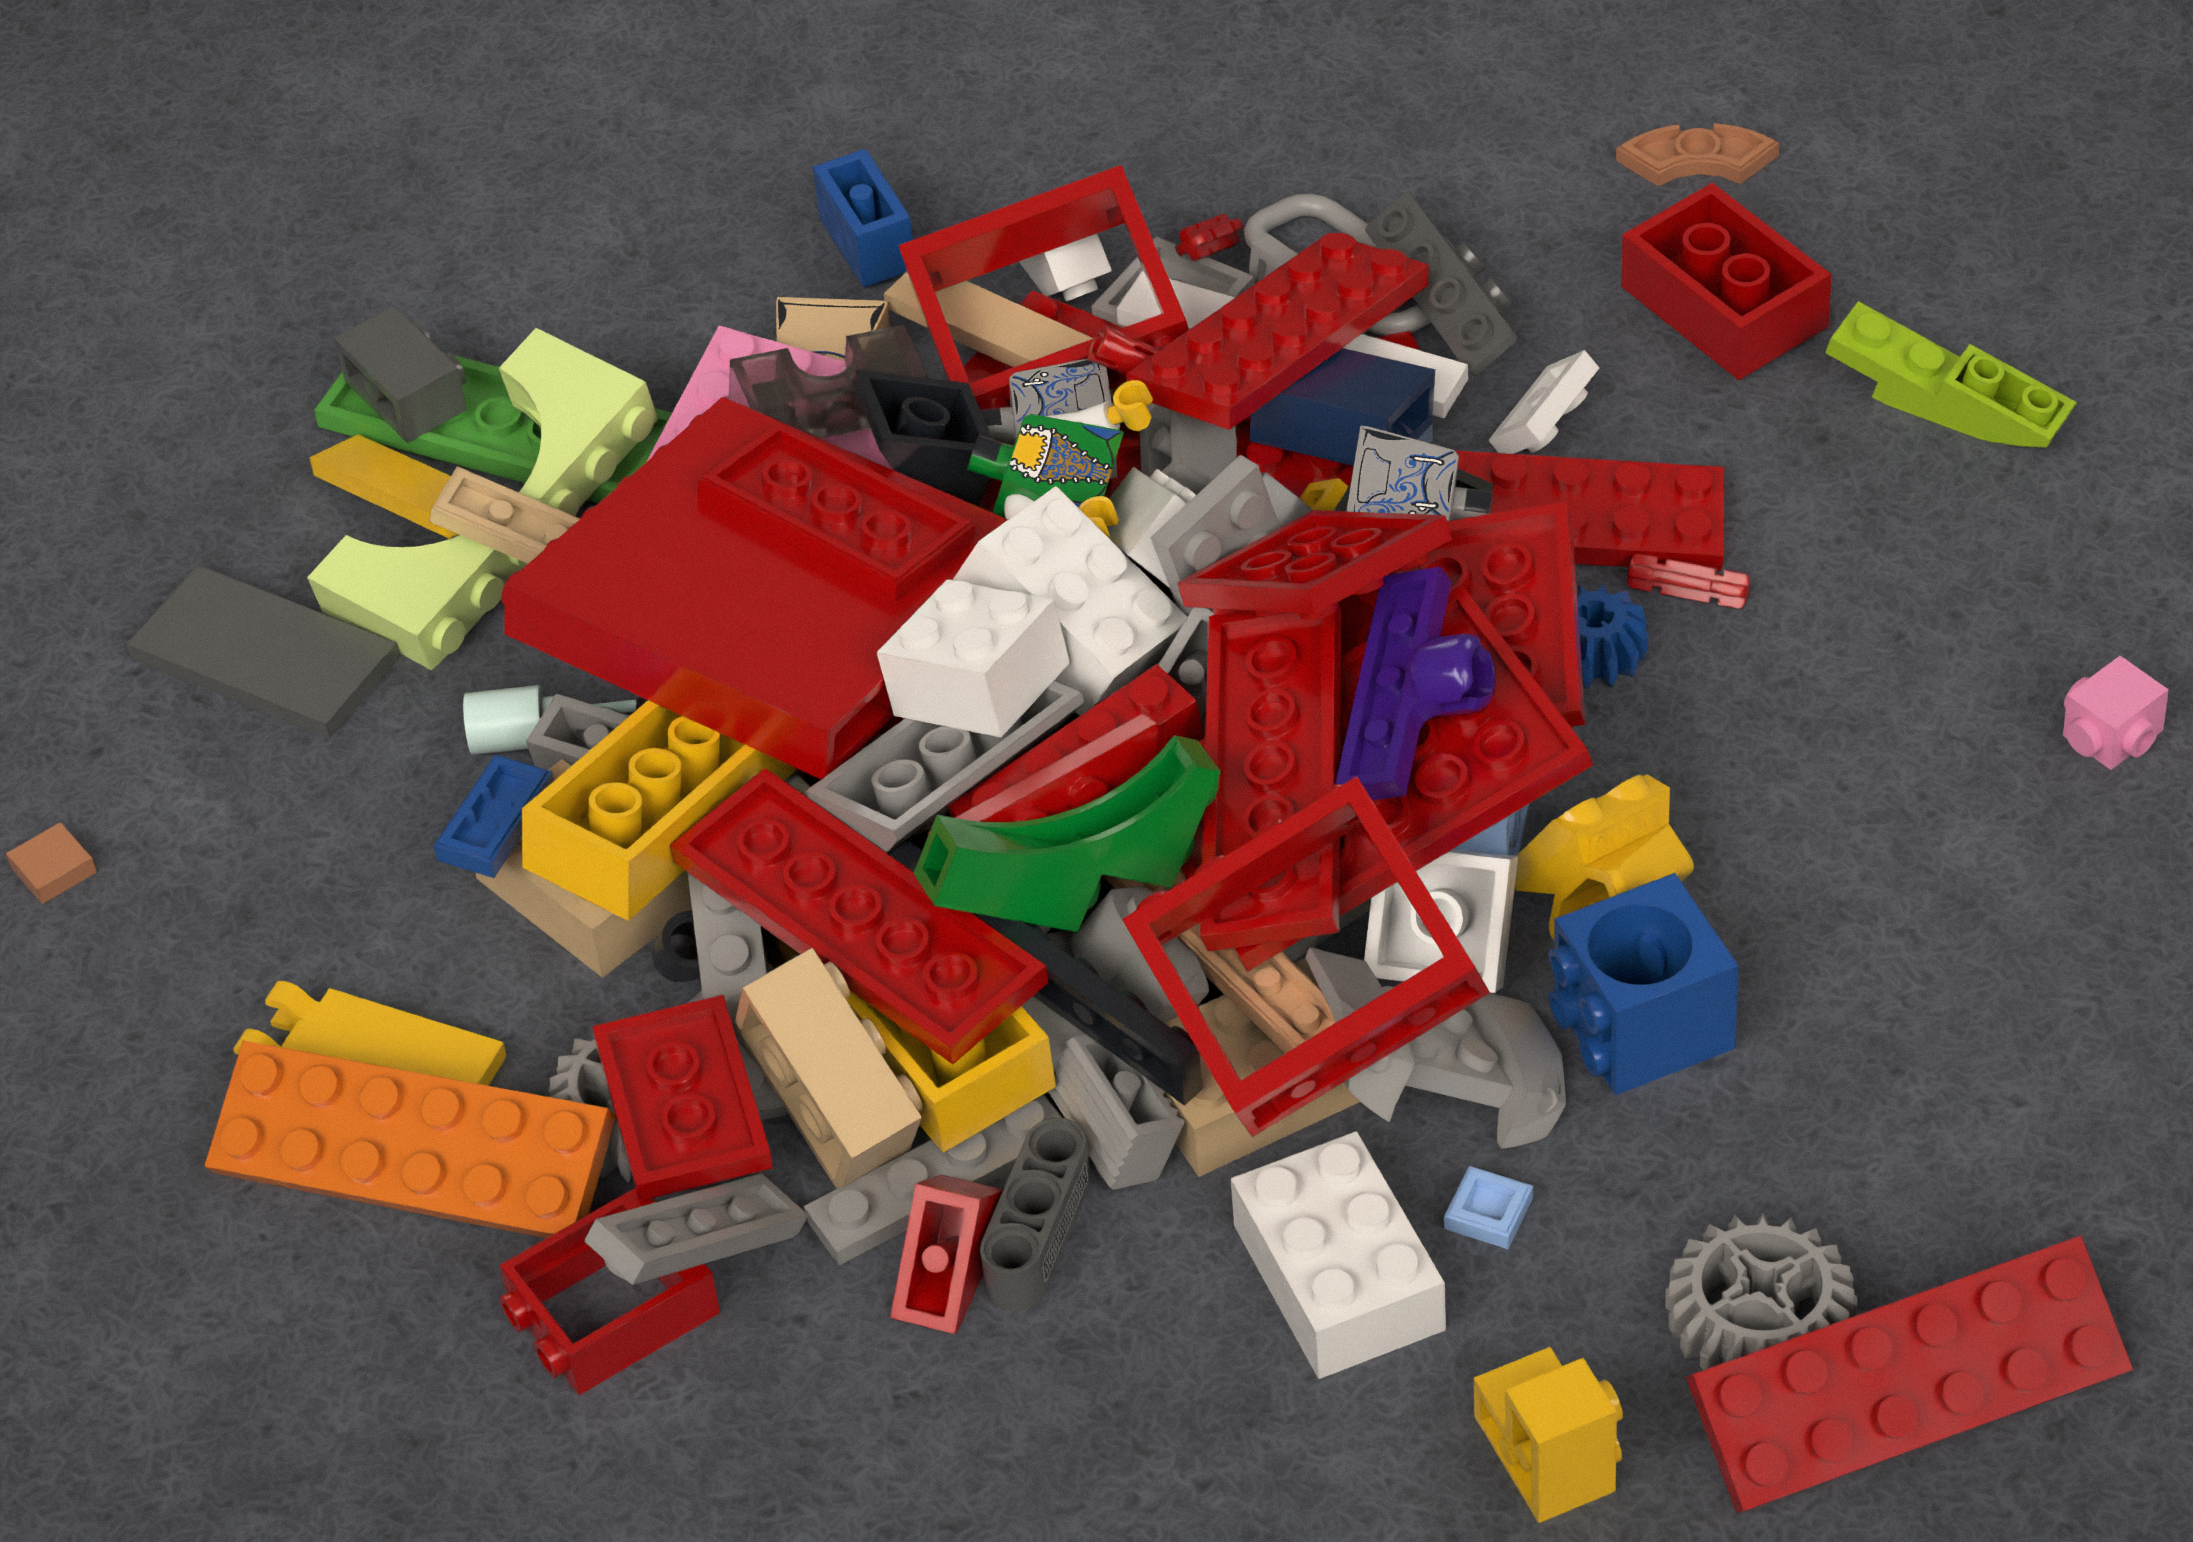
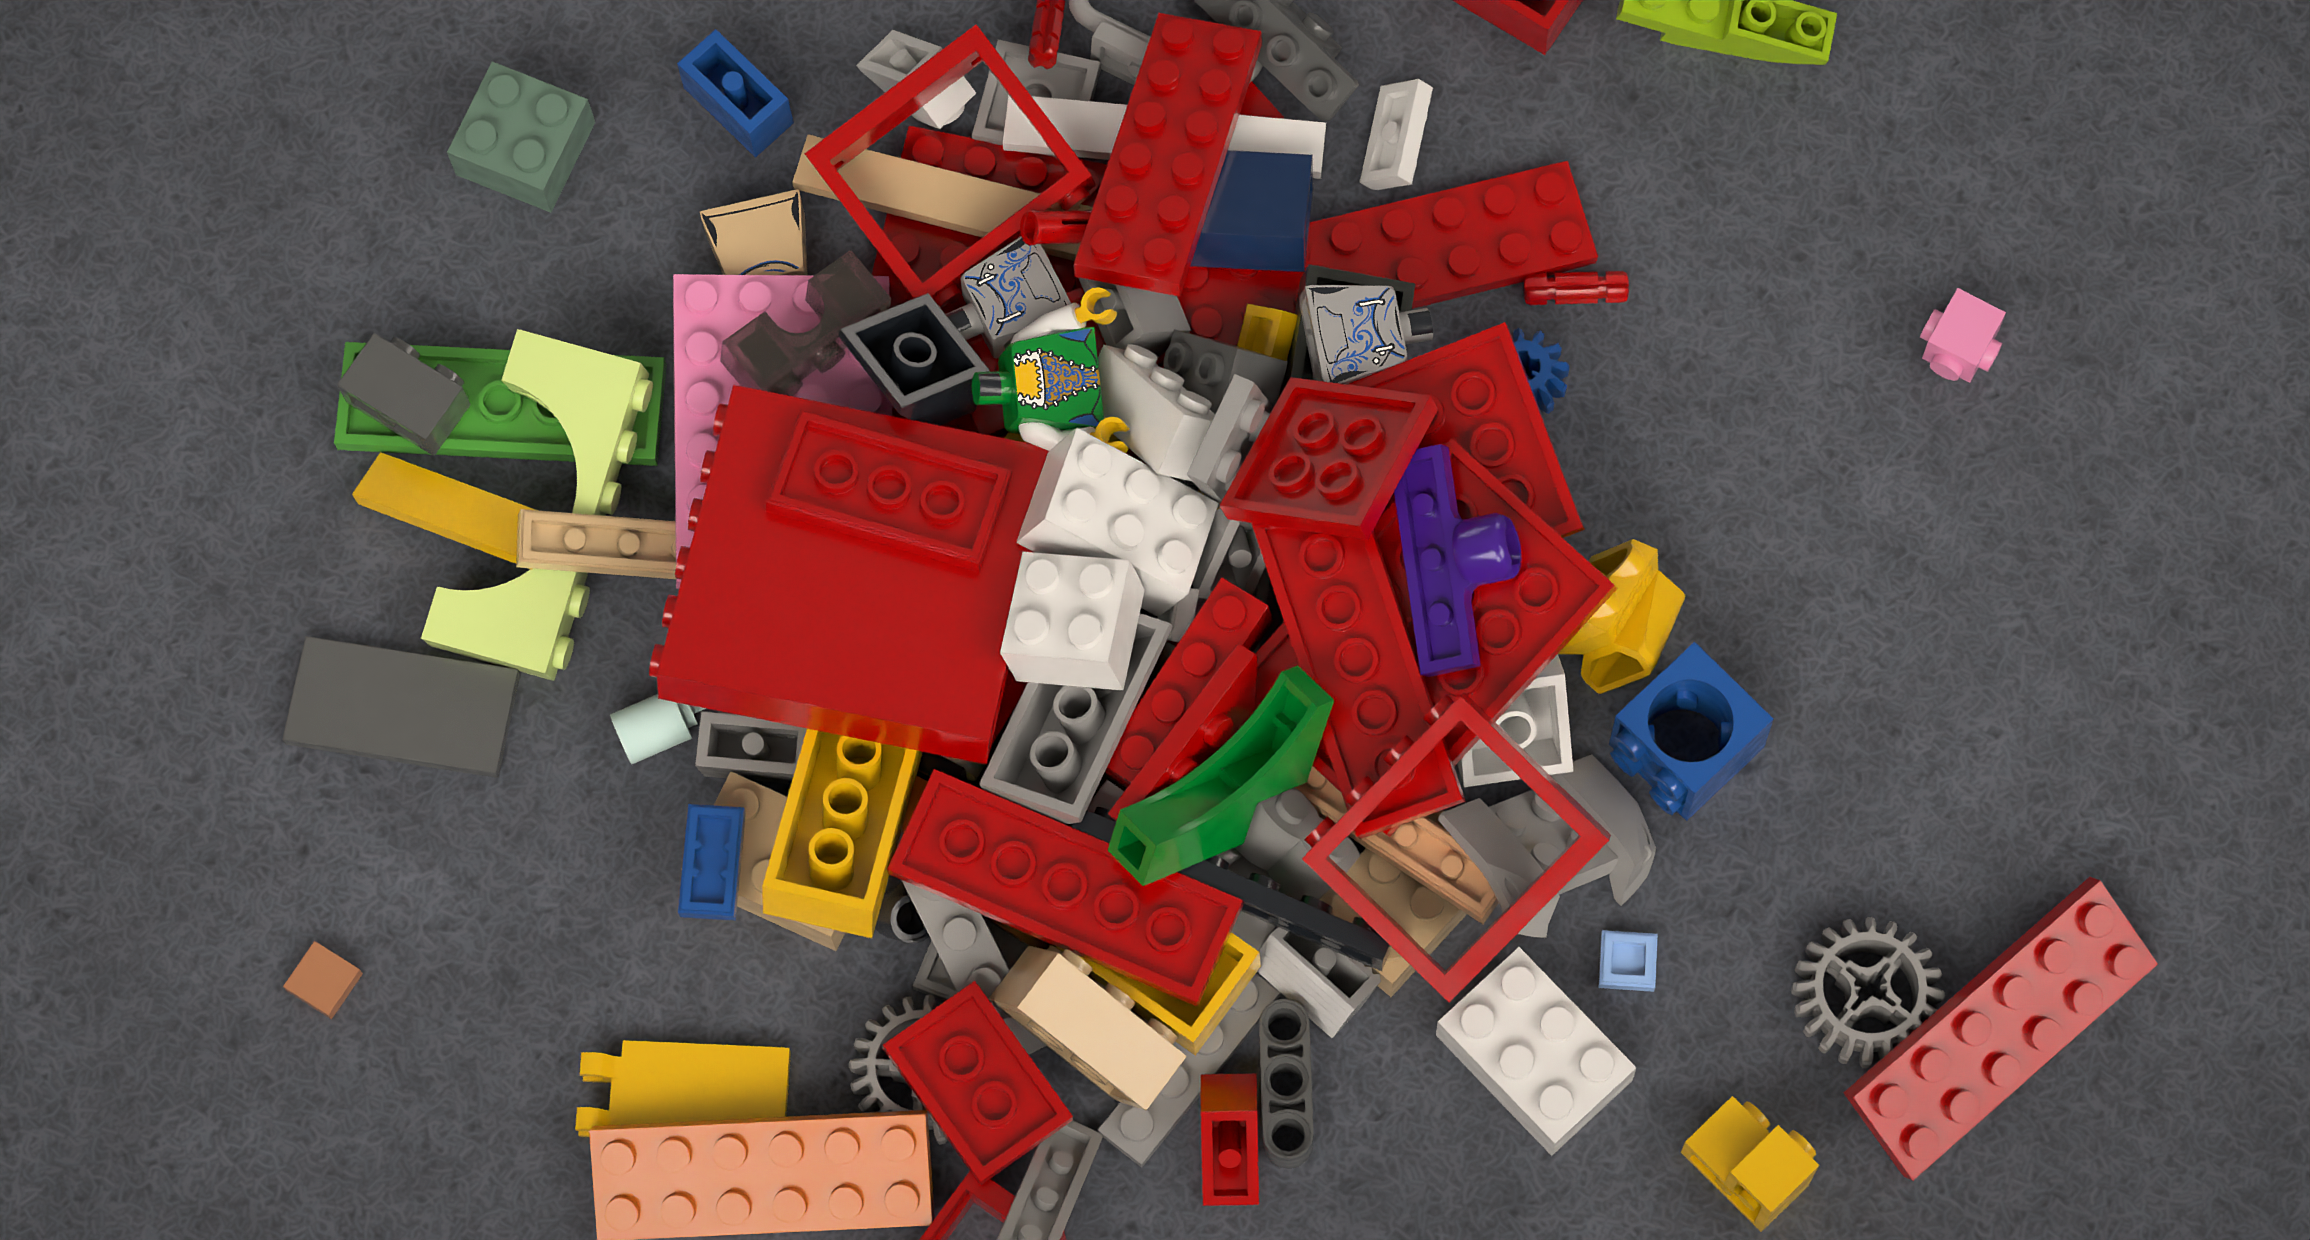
camera: 20 degrees left, 25 degrees up
(633, 211) = (521, 136): none -> sand green brick

